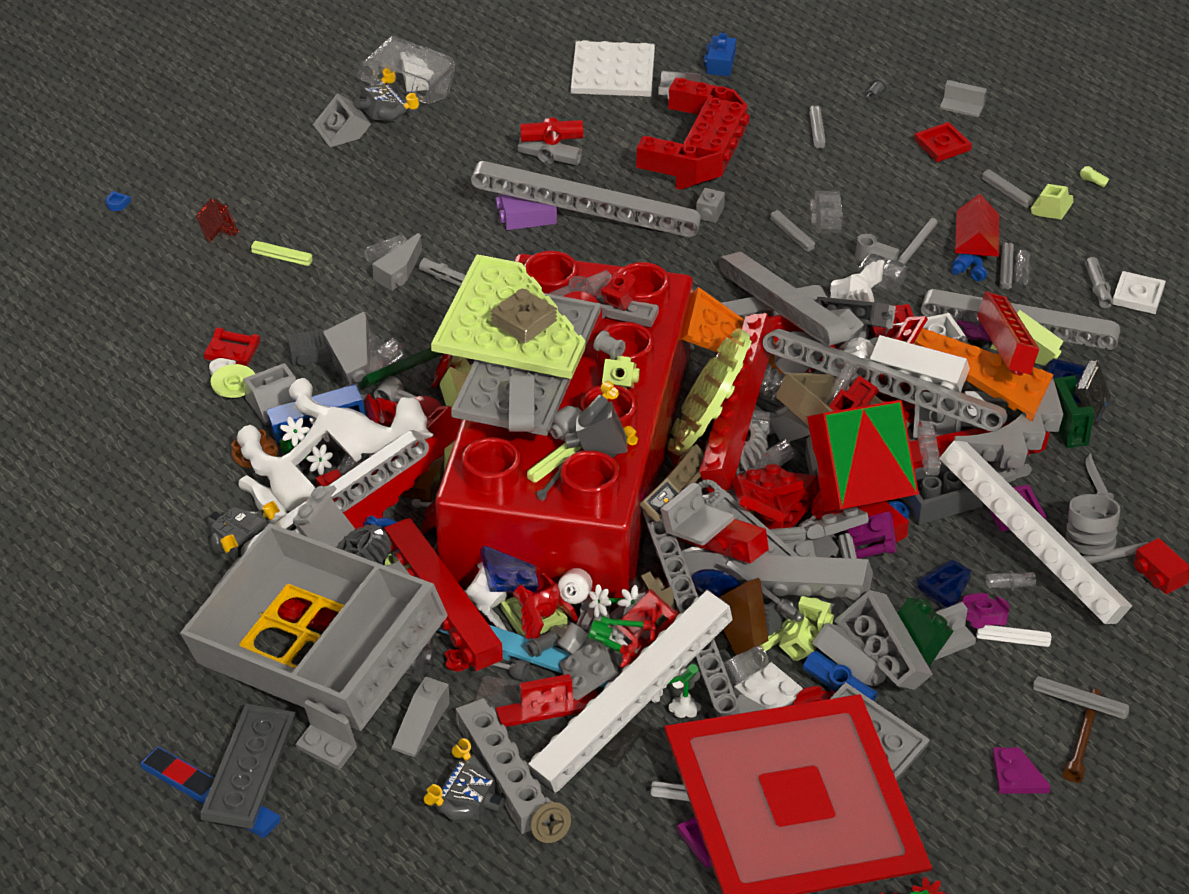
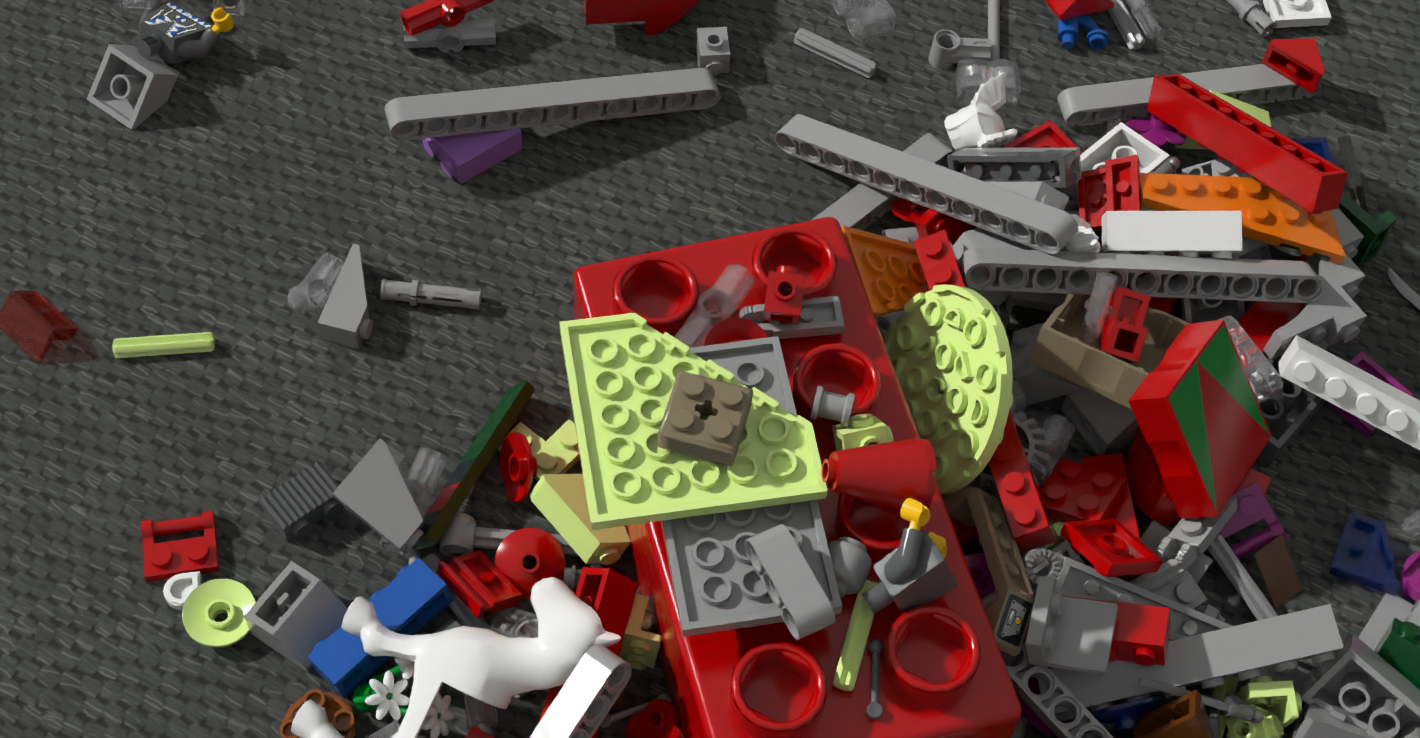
camera: 30 degrees left, 15 degrees up
(598, 368) = (883, 472): none -> red cone
(882, 568) = (1278, 571): none -> reddish brown sticker
(1099, 315) = (1296, 61): none -> red slope

